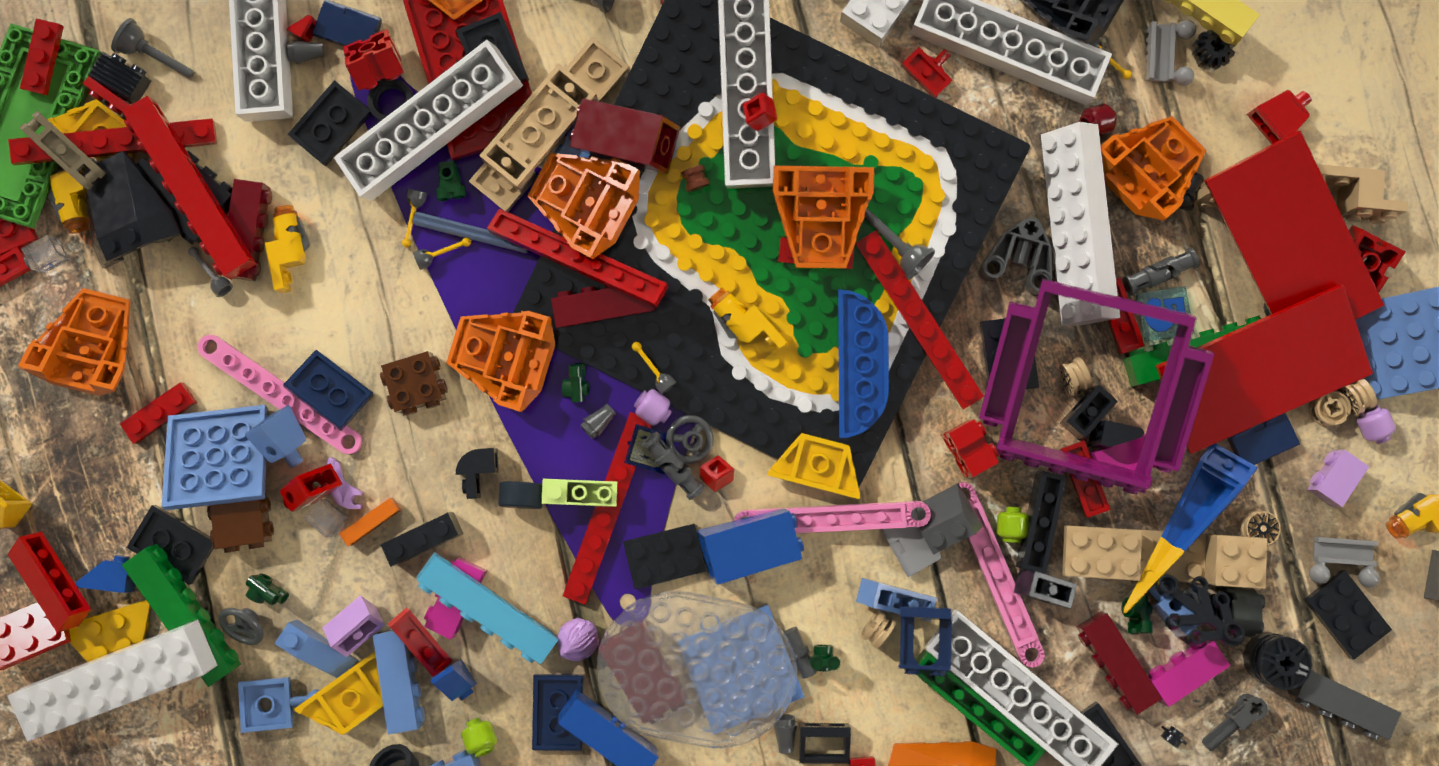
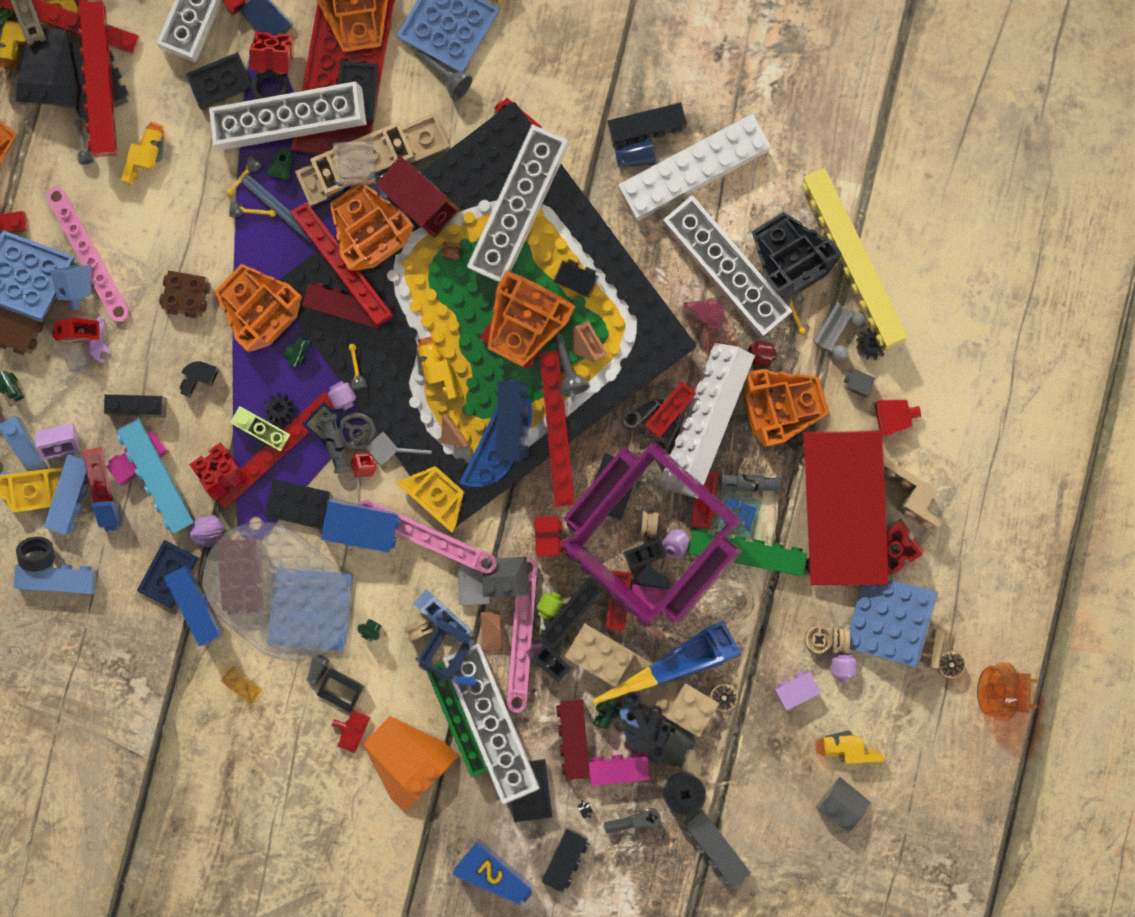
camera: 25 degrees right, 0 degrees up
(249, 219) = (129, 120): dark red brick -> none
(304, 51) = (227, 20): dark grey cone -> none
(328, 390) = (123, 268): dark blue tile -> none
(370, 522) = (105, 375): orange piece -> none
(479, 737) = (104, 563): lime head -> none
(520, 495) = (218, 409): black wheel -> none
(534, 133) = (354, 163): none -> clear brick
(556, 566) = (217, 471): none -> red brick
(591, 450) = (284, 402): none -> black gear
(597, 422) = (298, 386): dark grey cone -> none
(730, 442) = (383, 449): none -> light grey piece
(760, 111) = (515, 228): red slope -> none
(800, 652) = (356, 617): dark grey pin -> none
(802, 388) = (451, 434): none -> nougat slope
(856, 136) = (576, 278): none -> black brick
(869, 337) = (511, 421): none -> dark blue brick
(905, 205) = (587, 342): none -> nougat slope
(928, 71) = (660, 257): red plate -> none
(958, 586) = (491, 631): none -> nougat slope
(969, 662) = (468, 681): none -> blue tile
(1015, 106) = (705, 313): none -> clear pink slope
(1034, 233) = (670, 409): none -> red plate
(1117, 380) = (676, 543): none -> lavender head
(1222, 98) = (859, 382): none -> dark grey brick
(1264, 440) = (760, 637): dark blue piece -> none
(1278, 366) = (788, 589): red tile -> none
(1344, 552) = (775, 745): light grey gear -> none
(1347, 614) = (754, 790): black plate -> none

